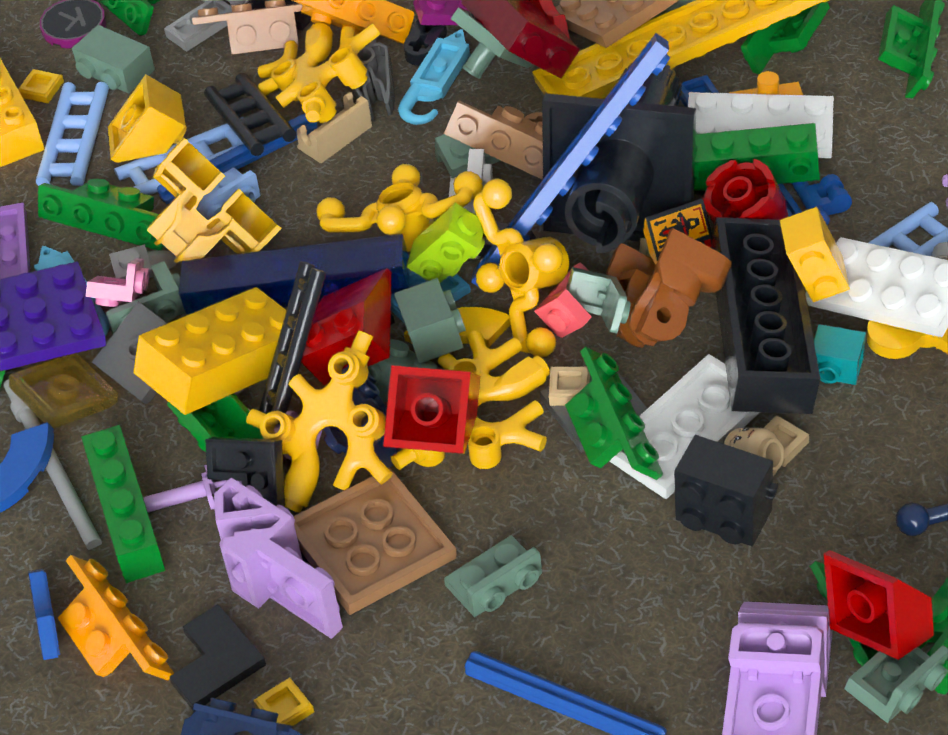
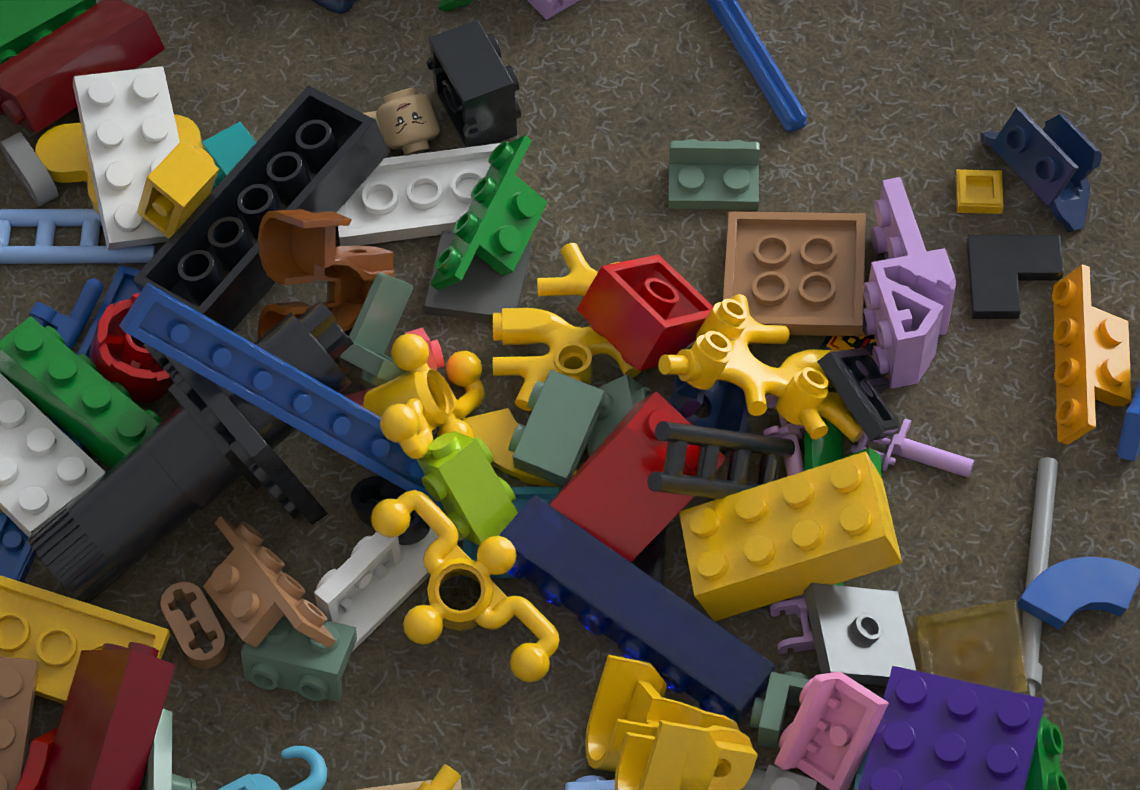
camera: 145 degrees left, 10 degrees up
(123, 504) = (997, 465): green brick -> none
(566, 383) = (487, 293): tan tile -> none

